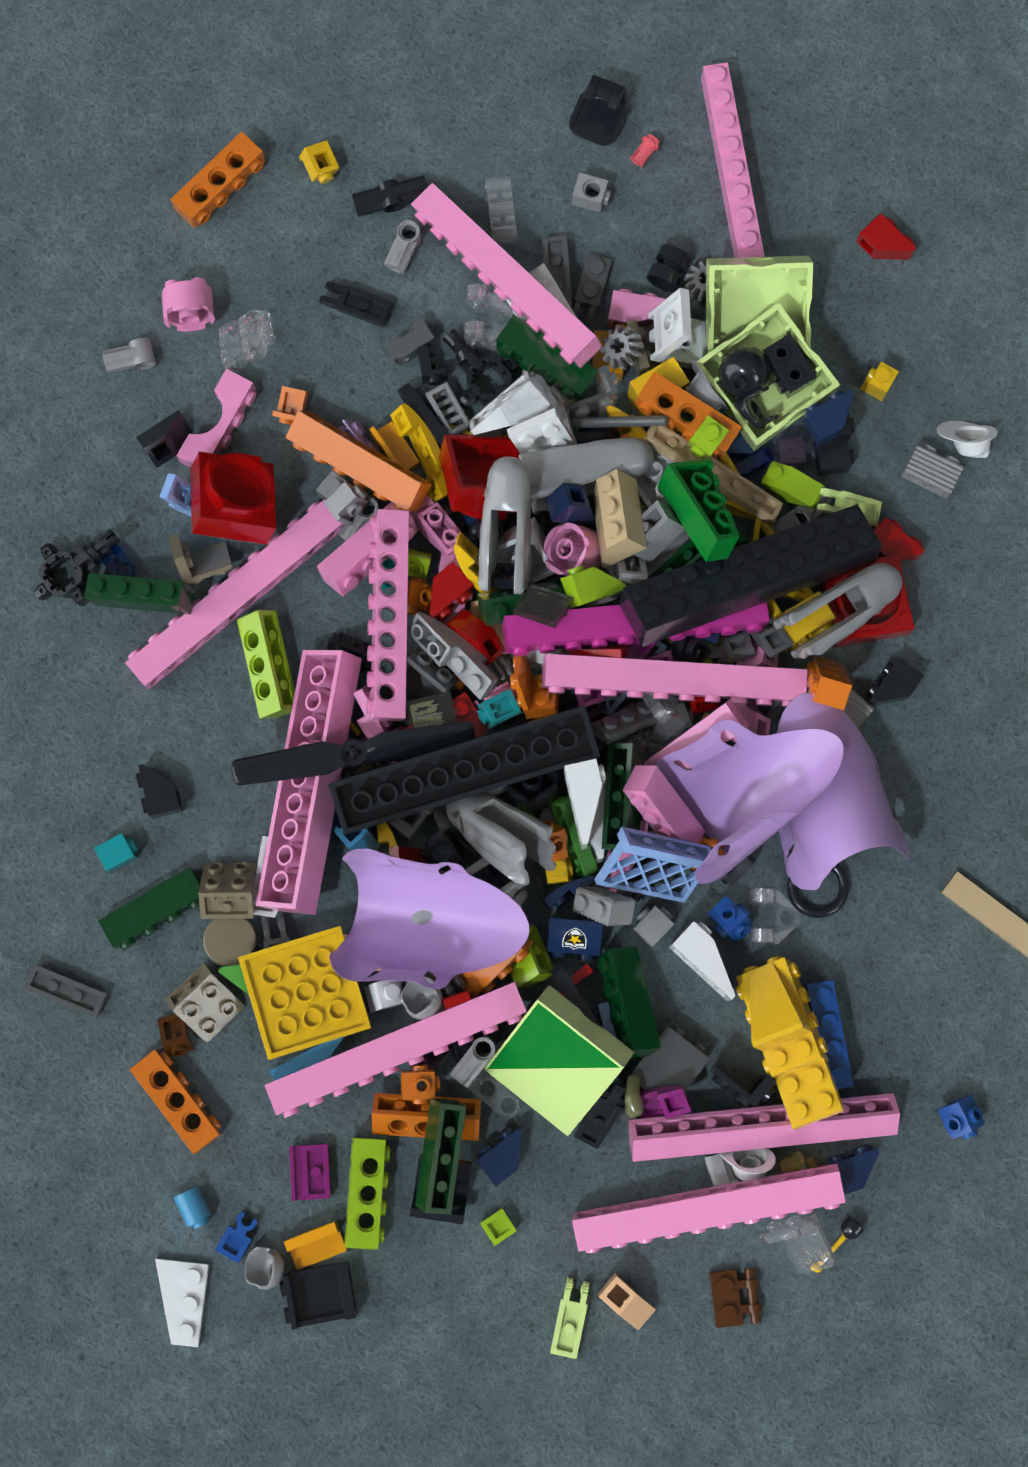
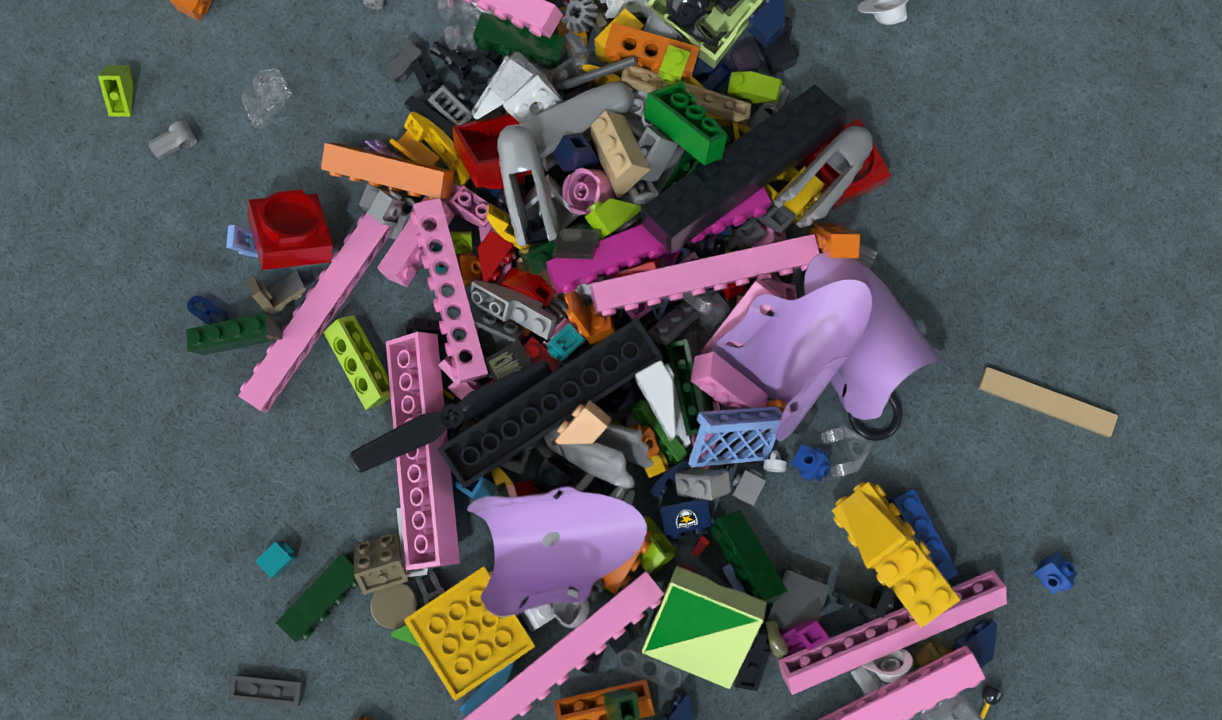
camera: 10 degrees left, 0 degrees up
(82, 559) = (179, 320): black piece -> none
(83, 282) = (117, 89): none -> lime slope
(160, 794) = (300, 498): black slope -> none
(165, 438) = (221, 198): black slope -> none
(174, 1035) = (370, 700): reddish brown bracket -> none
(187, 304) = (208, 83): bright pink brick -> none
(204, 1003) = (387, 665): dark tan bracket -> none
(234, 395) = (270, 147): bright pink arch -> none
(289, 403) = (316, 138): orange bracket -> none
(358, 304) = (351, 43): black hinge -> none
(409, 1082) = (584, 677): orange brick -> none
(455, 1000) = (601, 600): red tile -> none
(472, 1063) = (630, 651): light grey piece -> none
(494, 806) = (585, 427): none -> light nougat slope
(690, 908) = (775, 463): none -> white tile
(701, 954) = (797, 500): white slope -> none
(870, 507) = (801, 85): yellowish green hinge -> none
(896, 542) = (856, 108): red slope -> none
(897, 685) = (890, 226): black slope -> none
(932, 470) = (865, 43): light grey brick -> none

